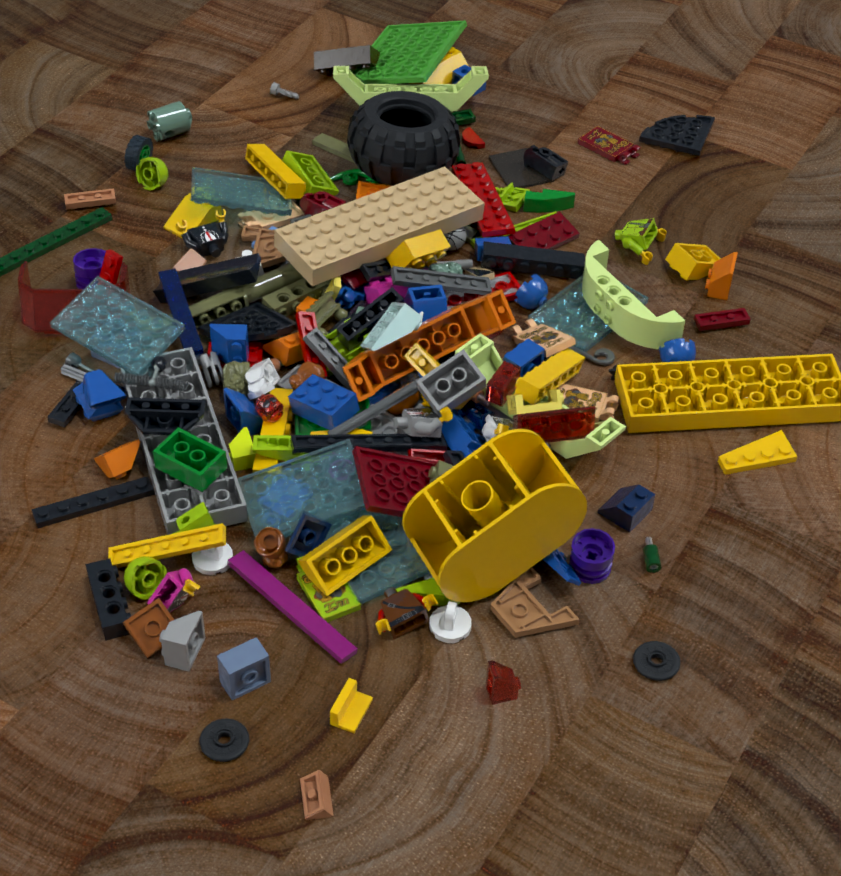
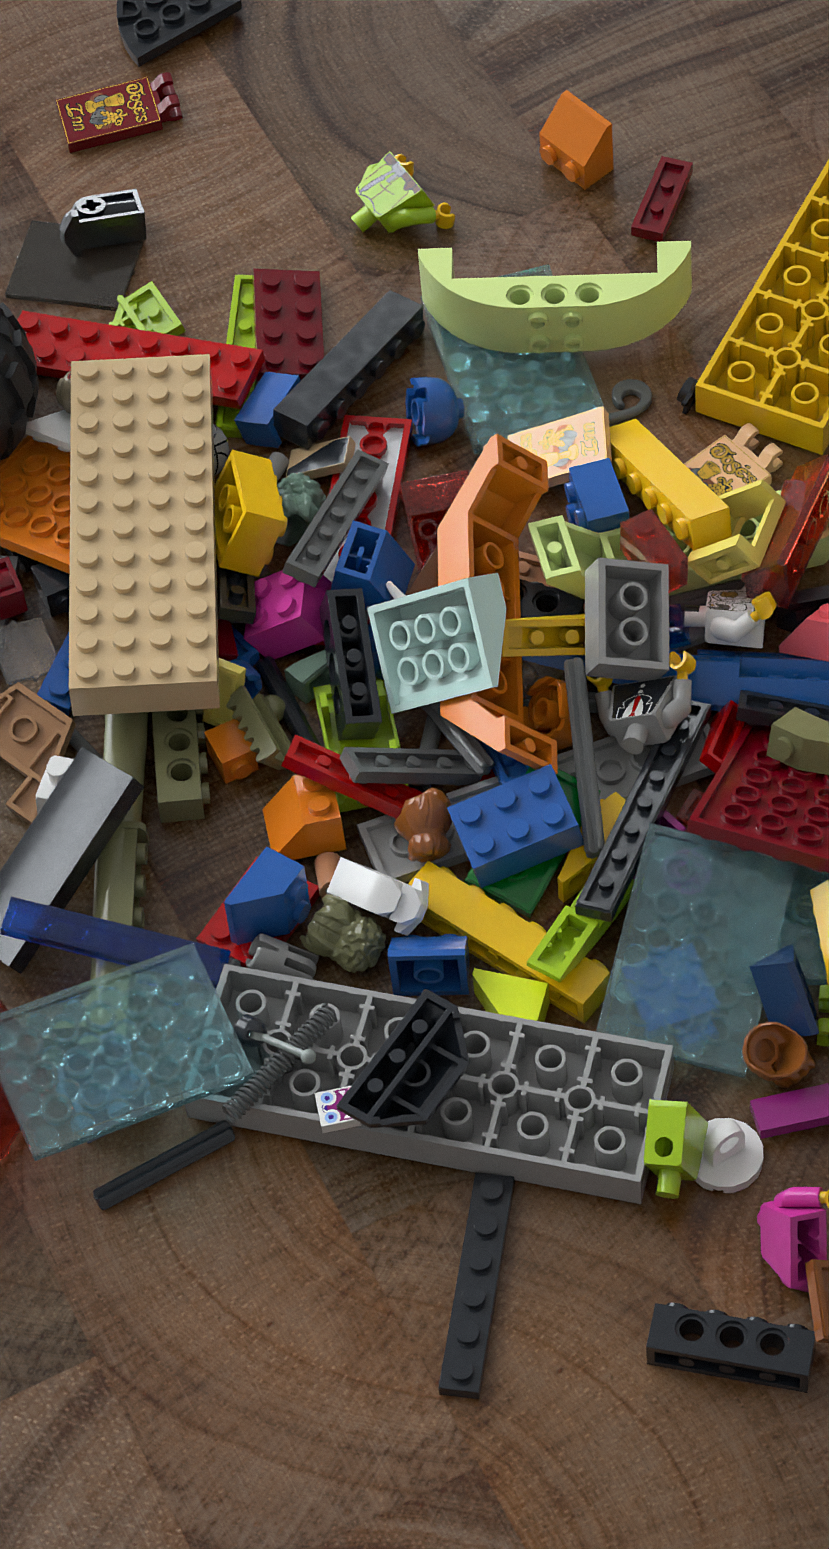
camera: 50 degrees left, 10 degrees up
(65, 409) = (207, 1223): black plate -> none
(75, 361) = (96, 1172): dark grey hinge -> none
(99, 396) = (240, 1164): blue piece -> none
(118, 460) = (405, 1198): orange slope -> none
(144, 576) = (719, 1271): lime cylinder -> none
(169, 545) = (691, 1204): yellow plate -> none
(190, 459) = (537, 1077): green brick -> none
(260, 321) = (207, 849): black plate -> none
(269, 408) = (469, 912): clear red head -> none
(548, 201) = (202, 273): green slope -> none
(678, 350) = (713, 298): blue cylinder -> none
(691, 260) = (505, 158): yellow slope -> none

